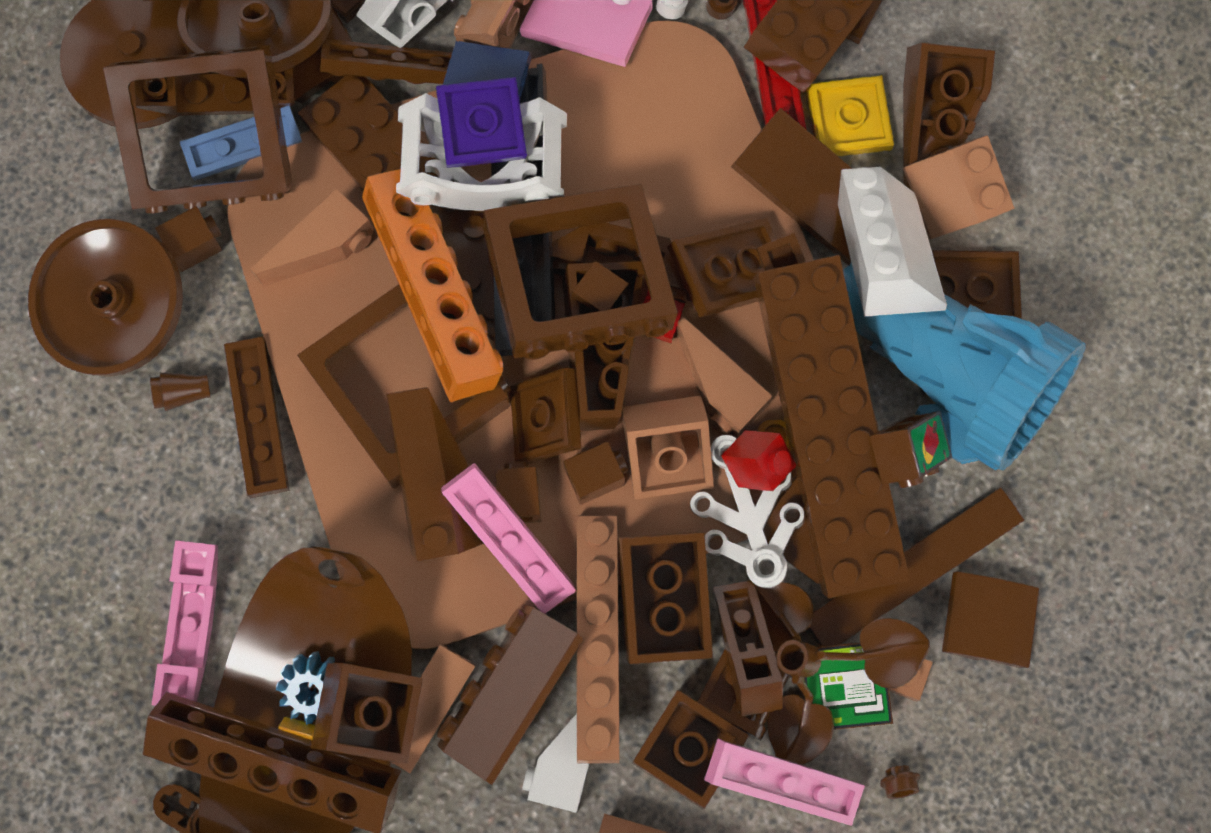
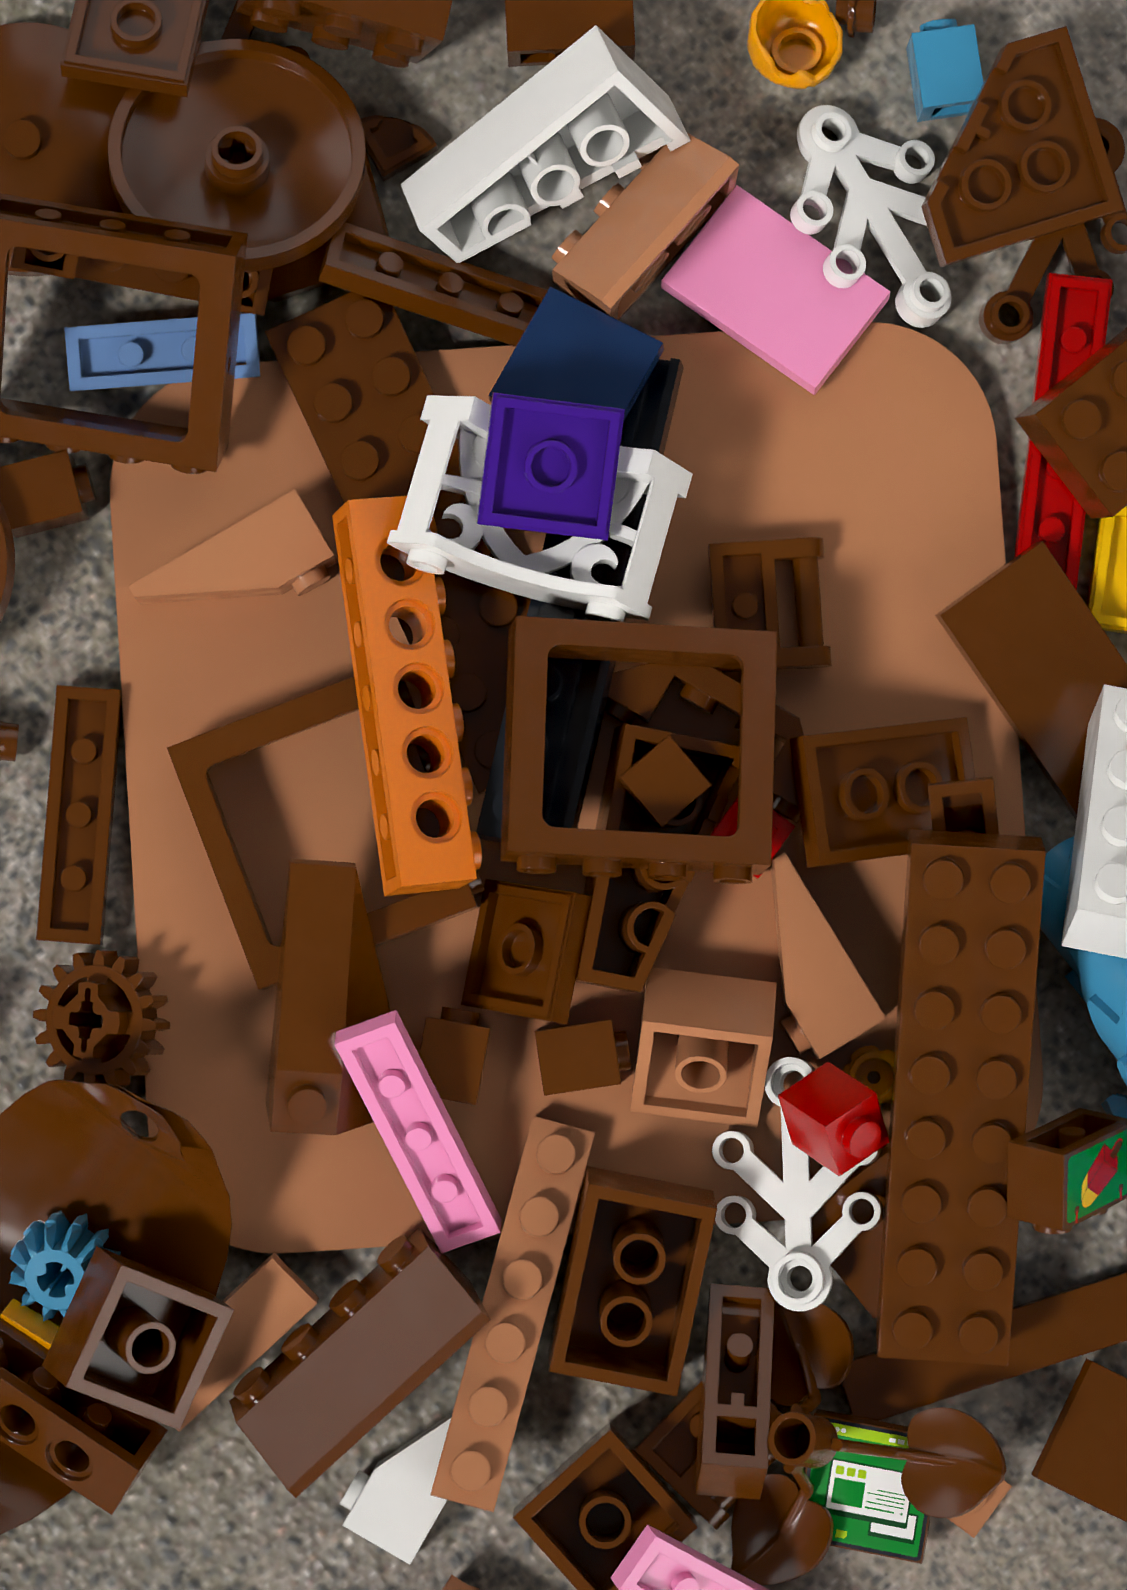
camera: 15 degrees right, 10 degrees up
(293, 526) = (107, 988): none -> reddish brown gear
(615, 171) = (747, 594): none -> reddish brown plate

